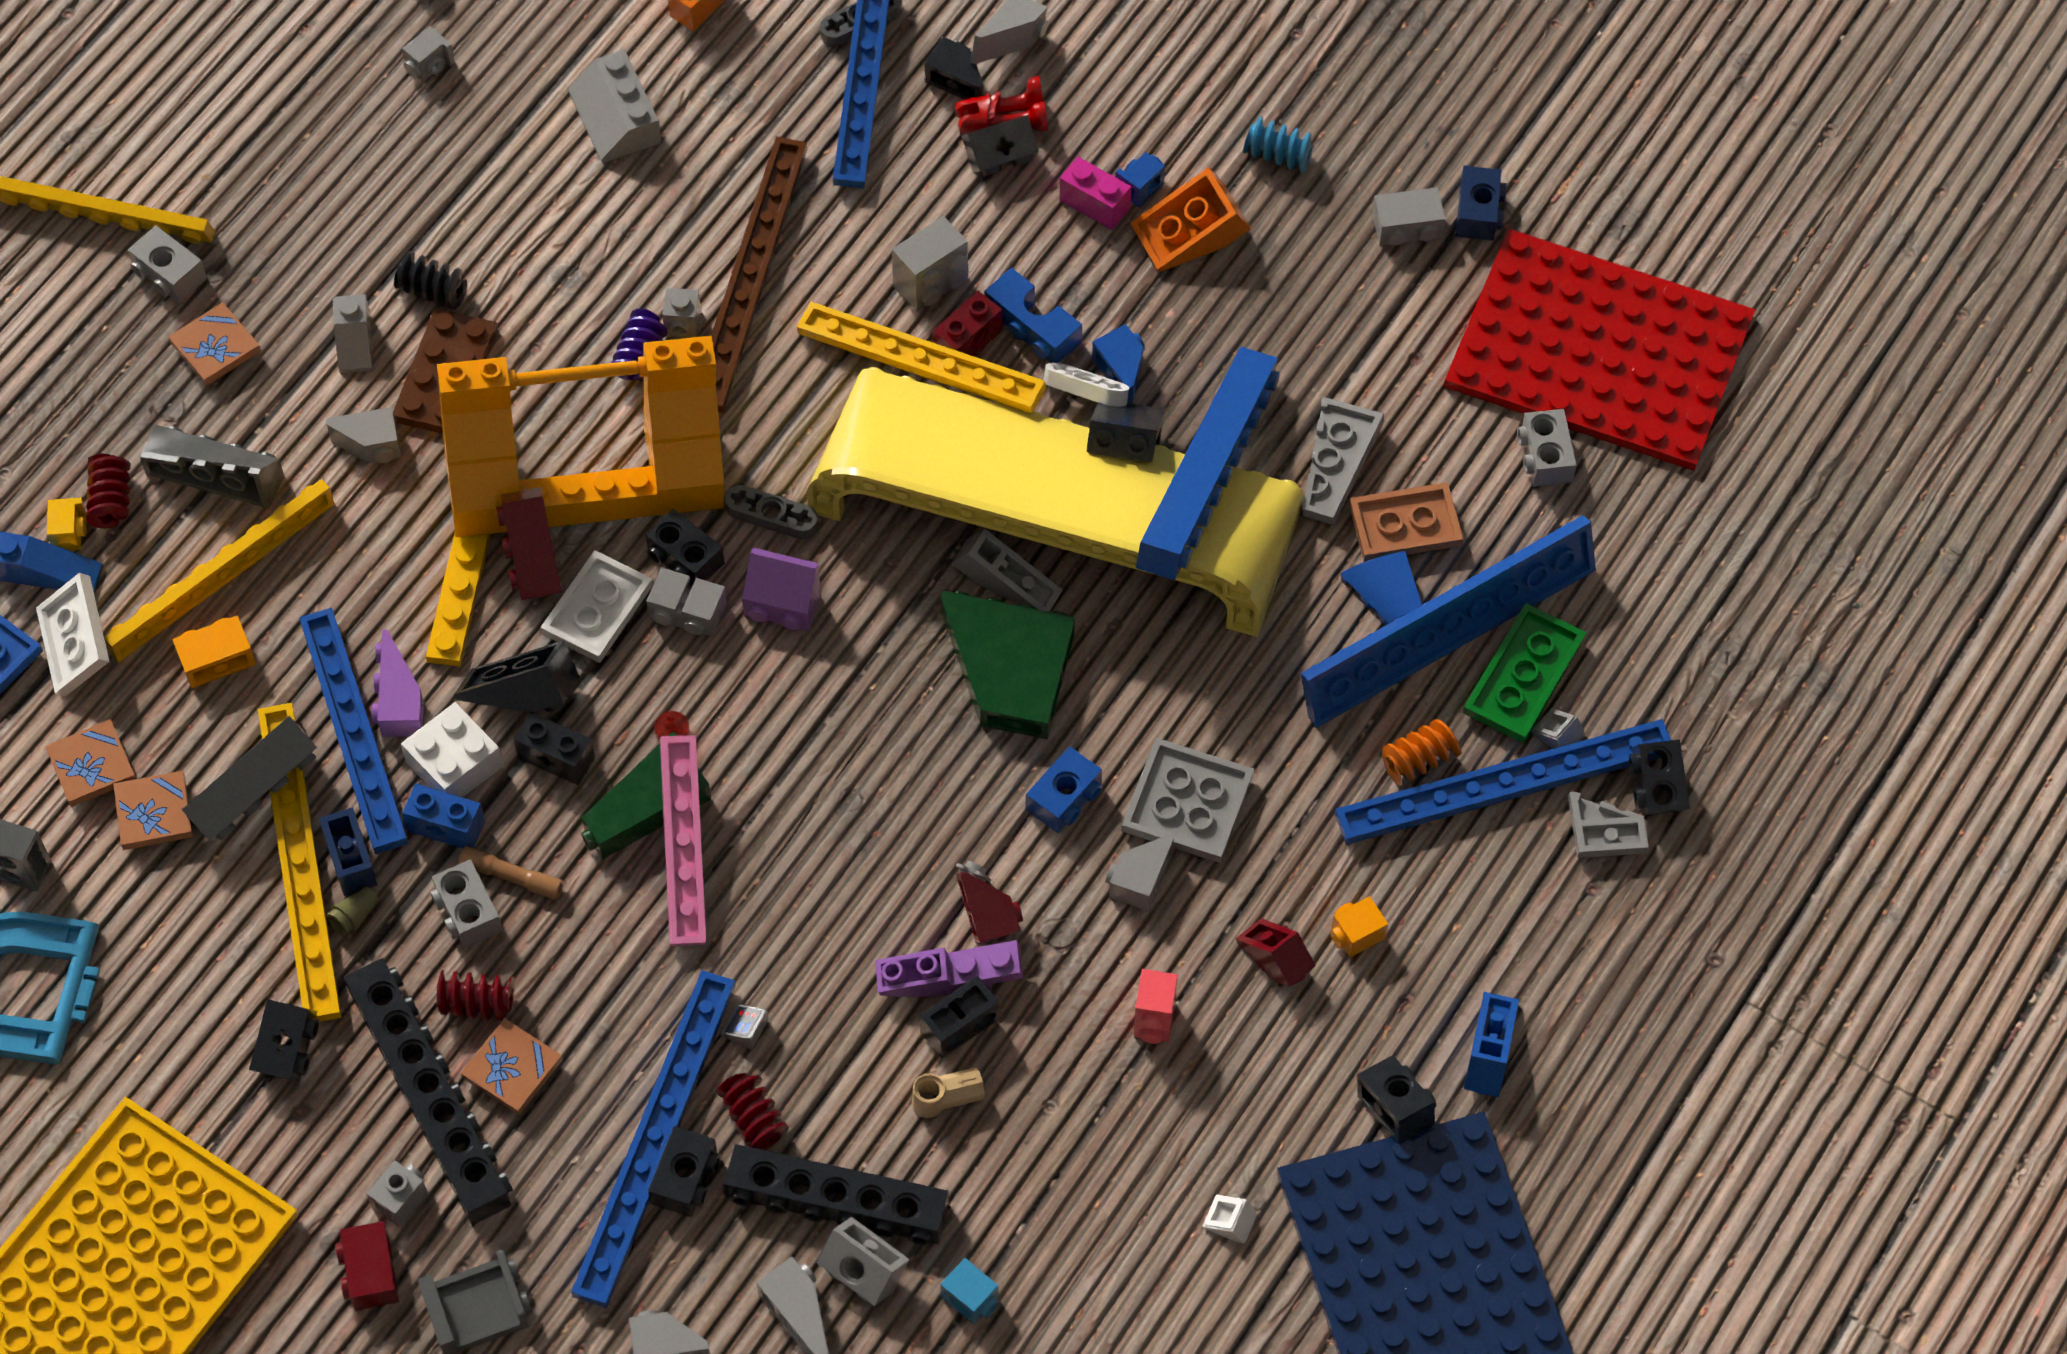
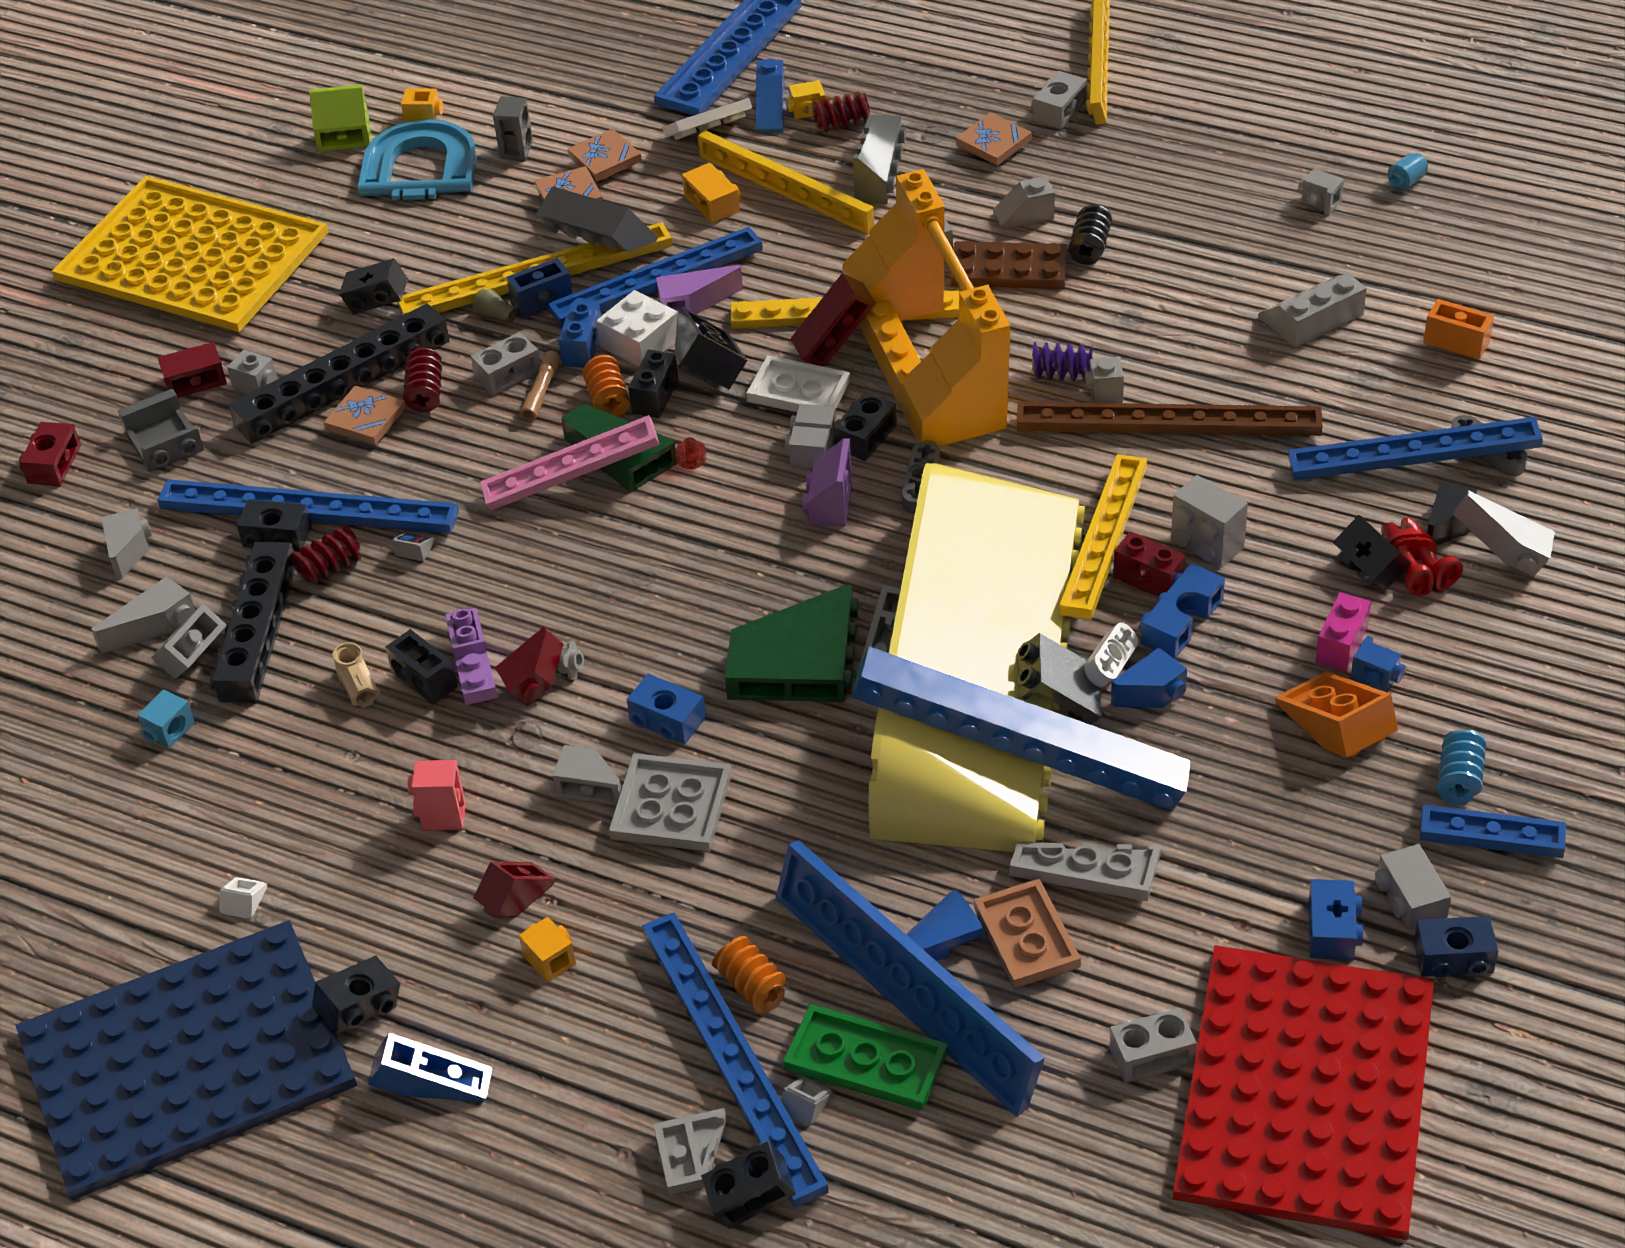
camera: 85 degrees right, 15 degrees down
(544, 799) = (606, 385): none -> orange piece
(1354, 144) = (1493, 831): none -> blue plate
(1434, 284) = (1333, 919): none -> blue brick

